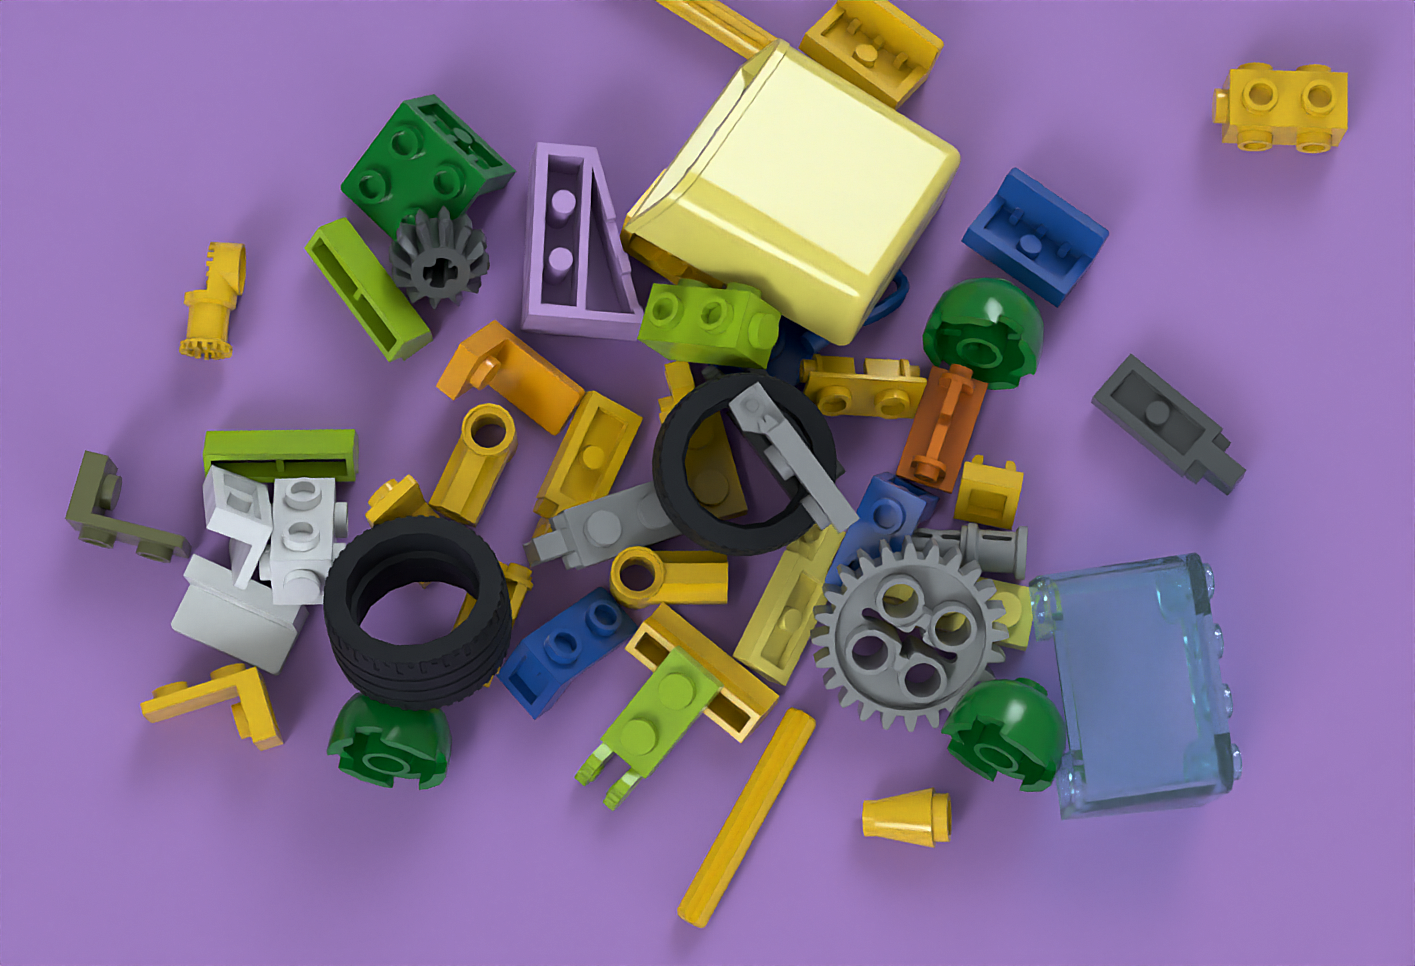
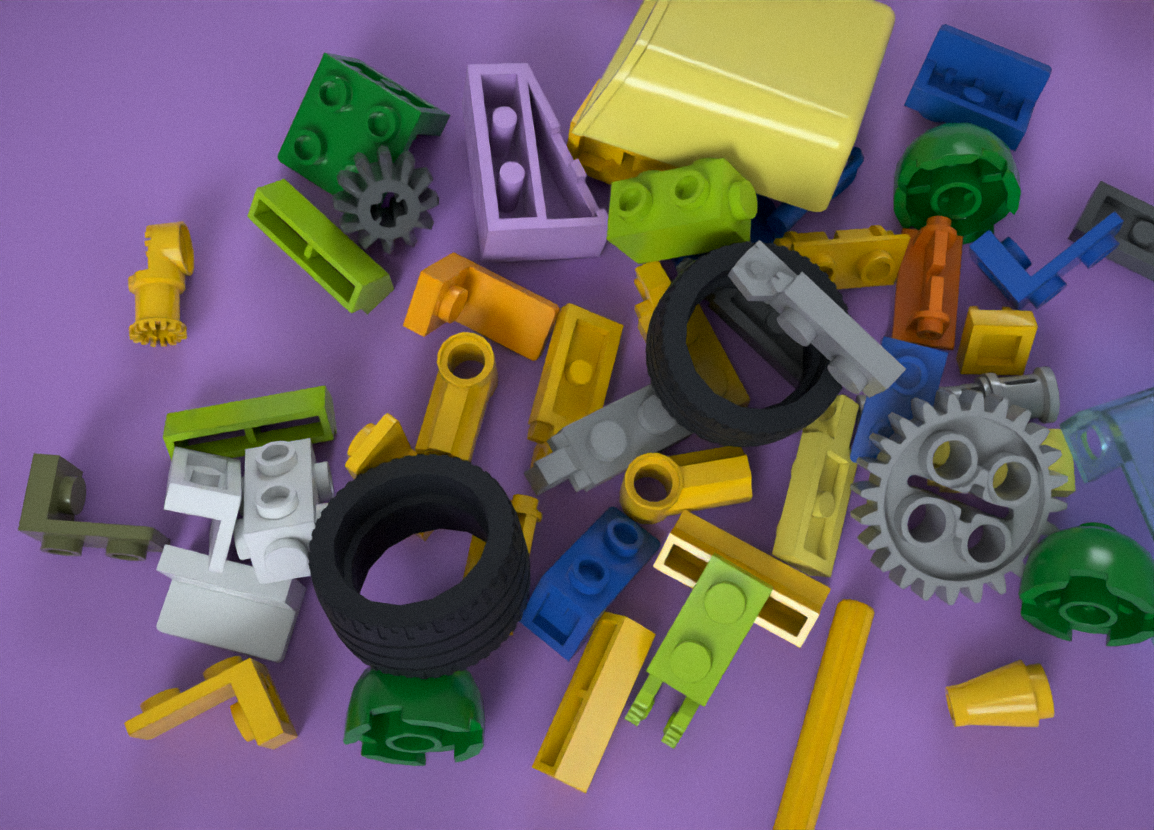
camera: 10 degrees left, 5 degrees down
(551, 757) = (594, 701): none -> yellow piece
(1017, 420) = (1007, 263): none -> blue bracket

